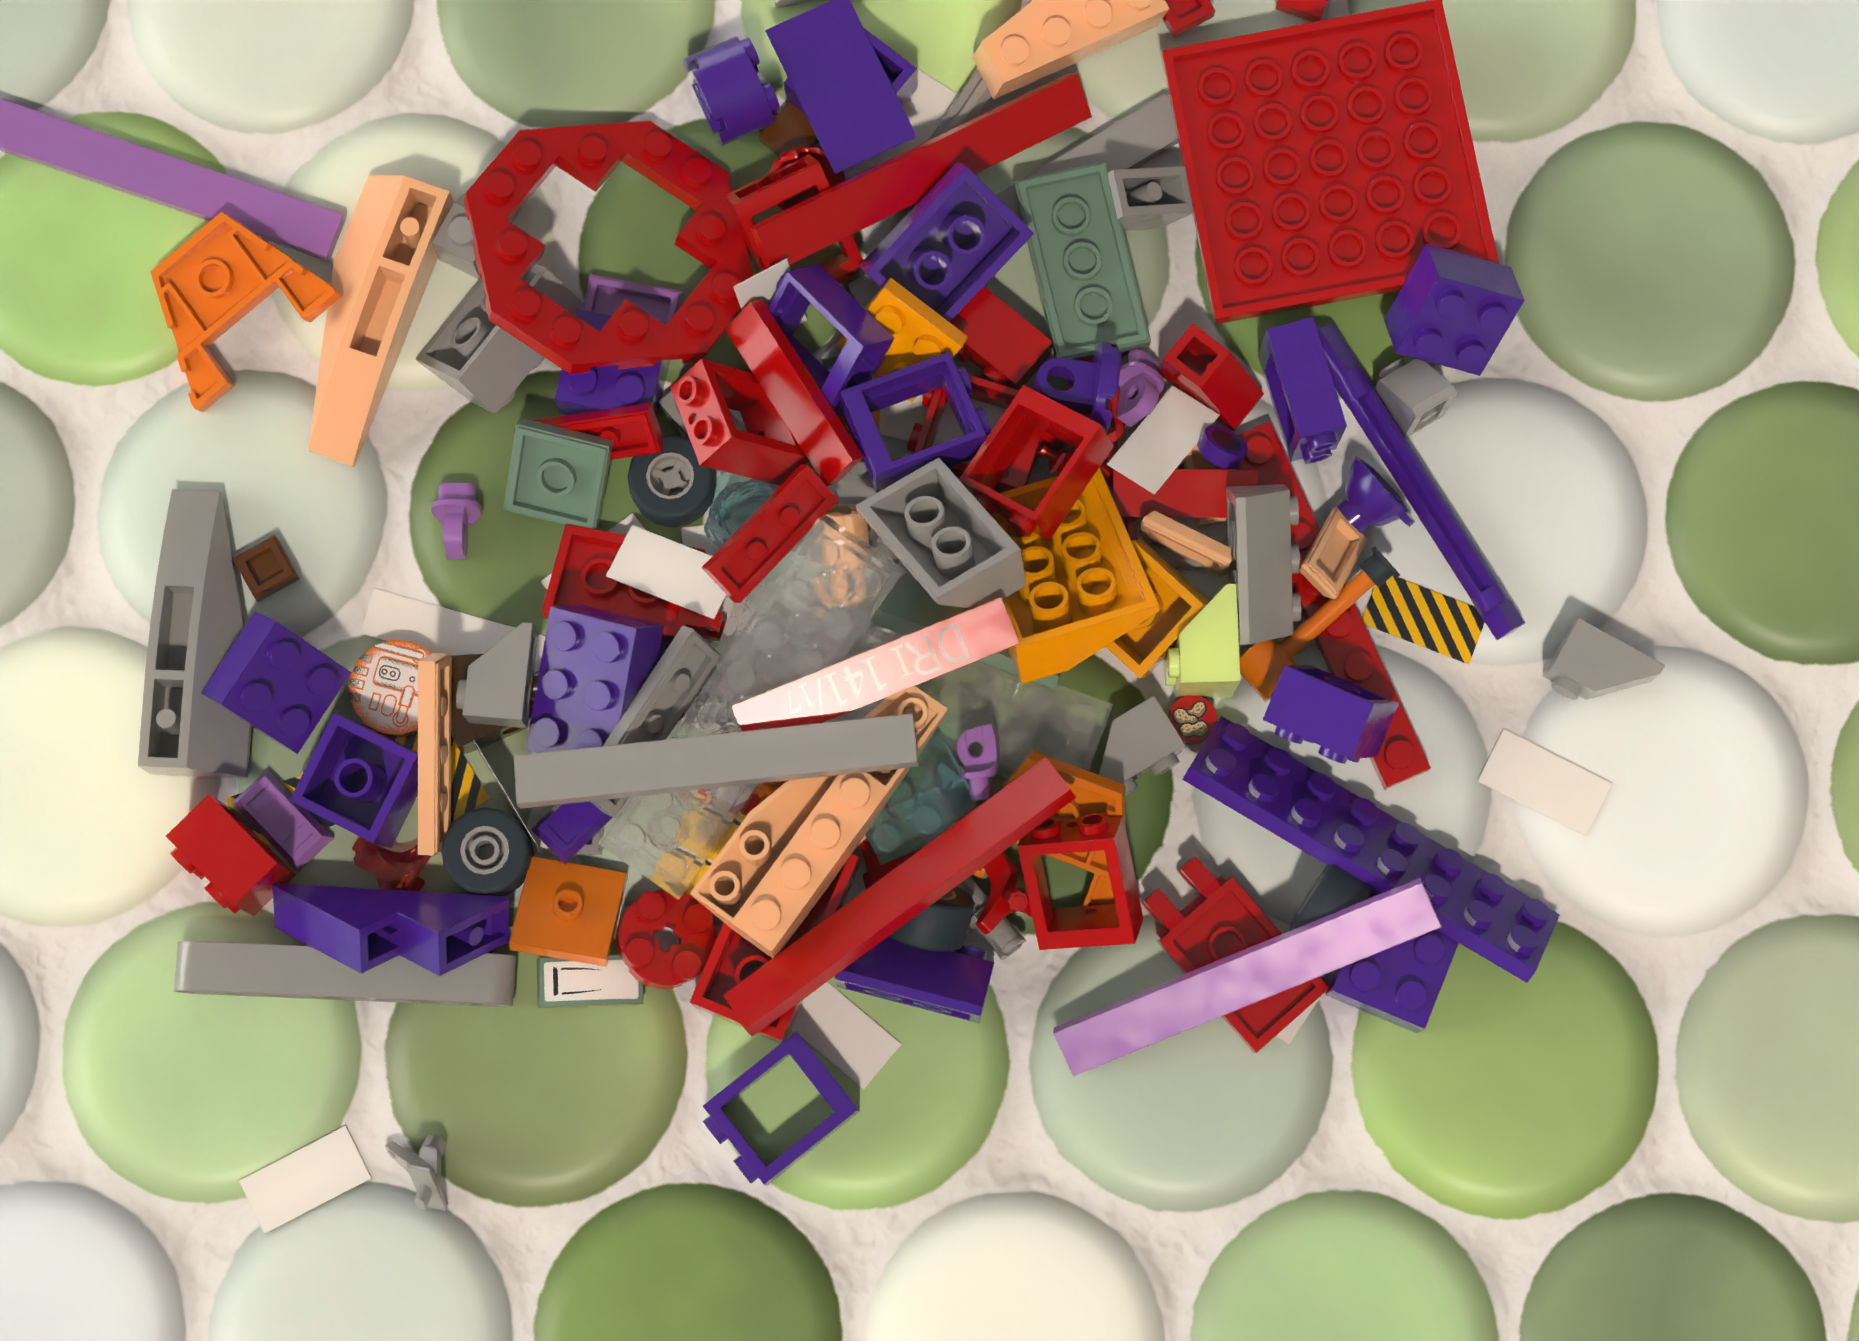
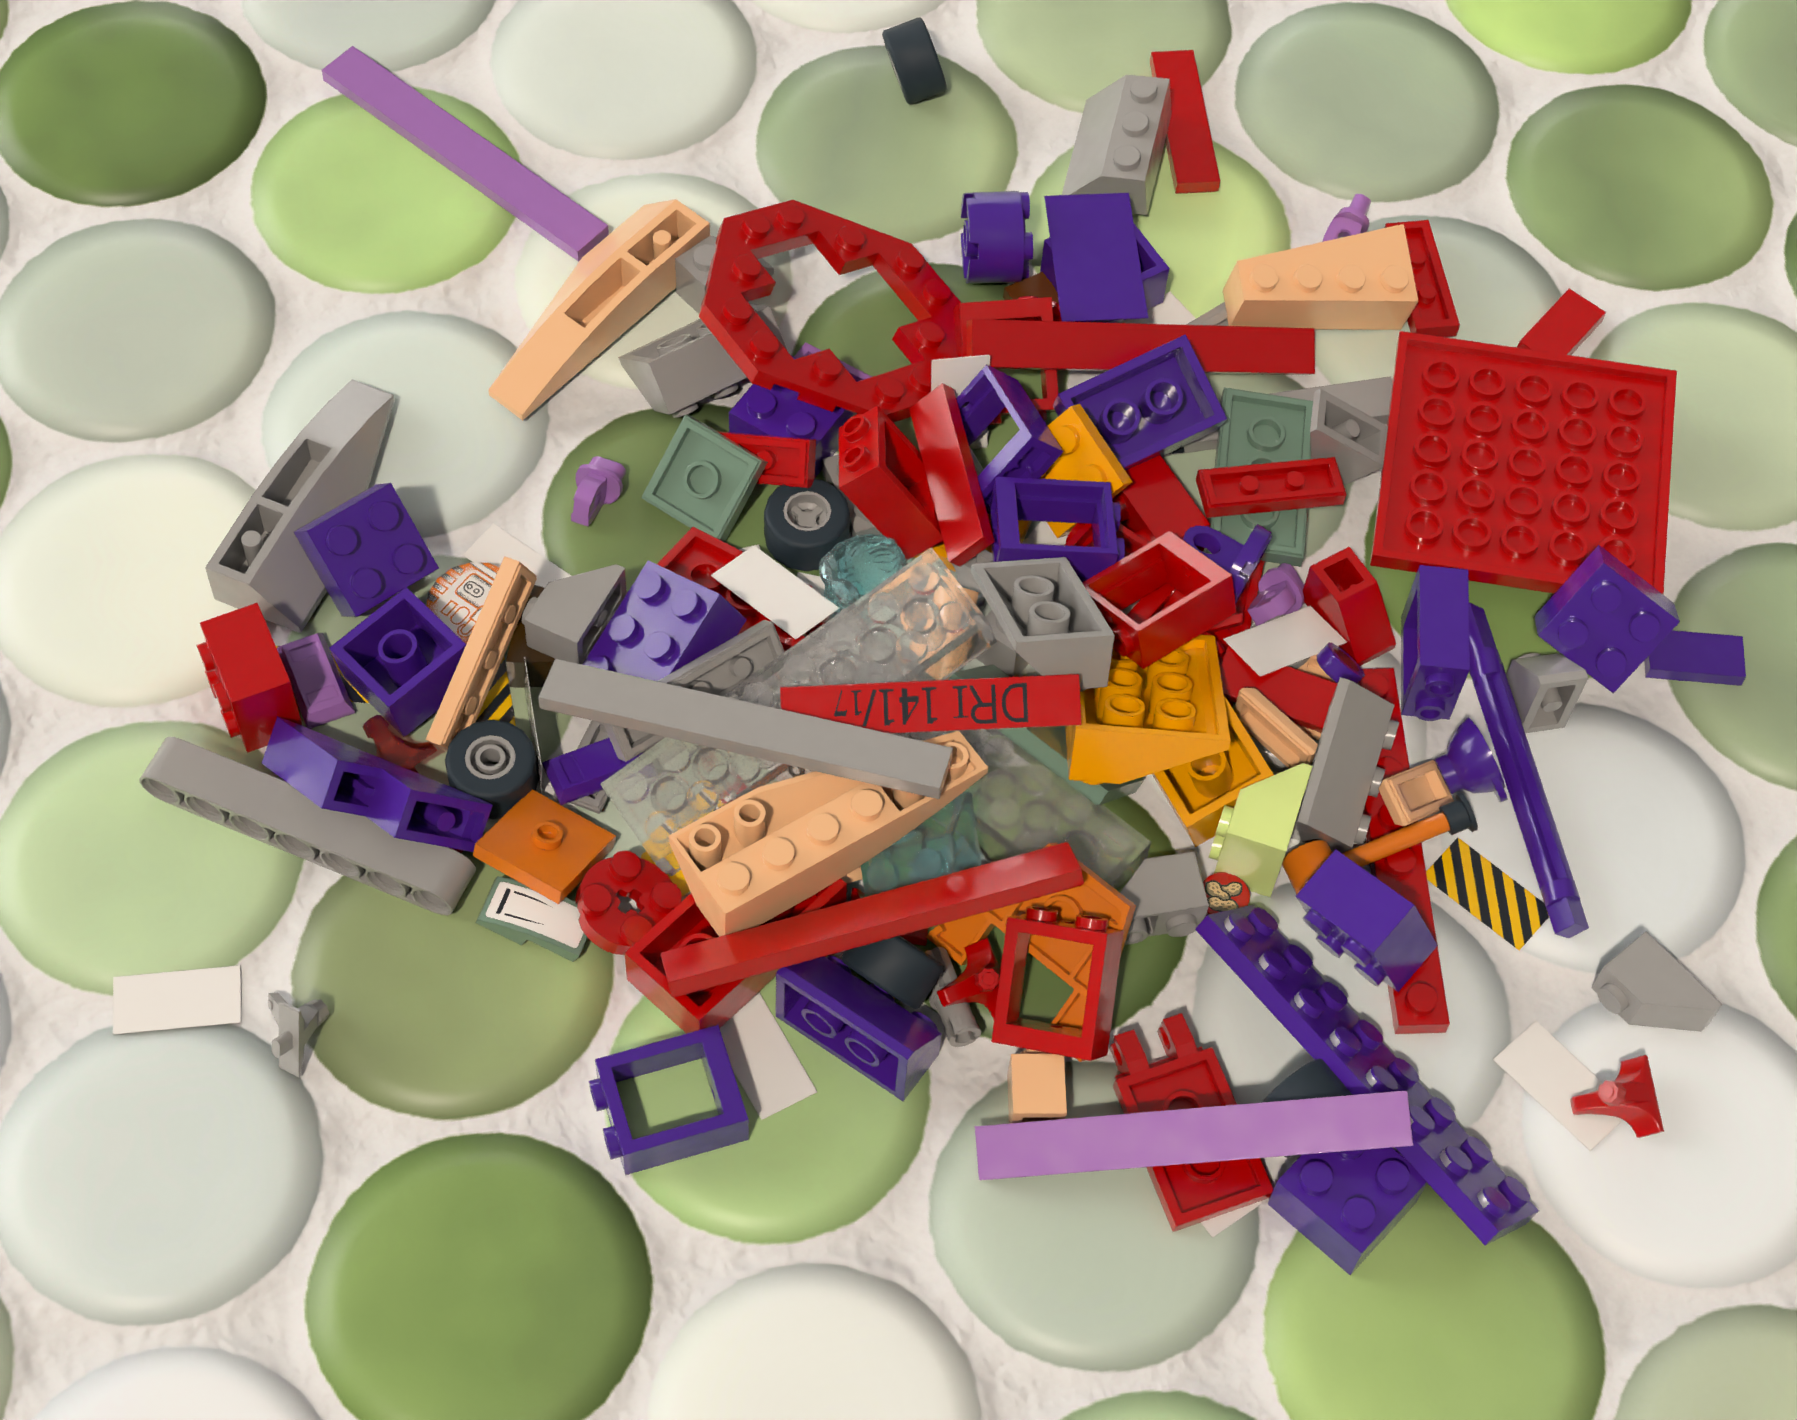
camera: 15 degrees right, 20 degrees down
(215, 284) = (469, 238): orange wing -> none
(266, 568) = (405, 470): reddish brown tile -> none
(770, 533) = (846, 583): red plate -> none
(982, 767) = (1002, 843): medium lavender piece -> none
(1093, 977) = (1036, 1087): none -> light nougat brick
(1096, 279) = (1270, 487): none -> red tile
(1552, 295) = (1698, 658): none -> dark purple tile
(1606, 777) = (1627, 1098): none -> red piece

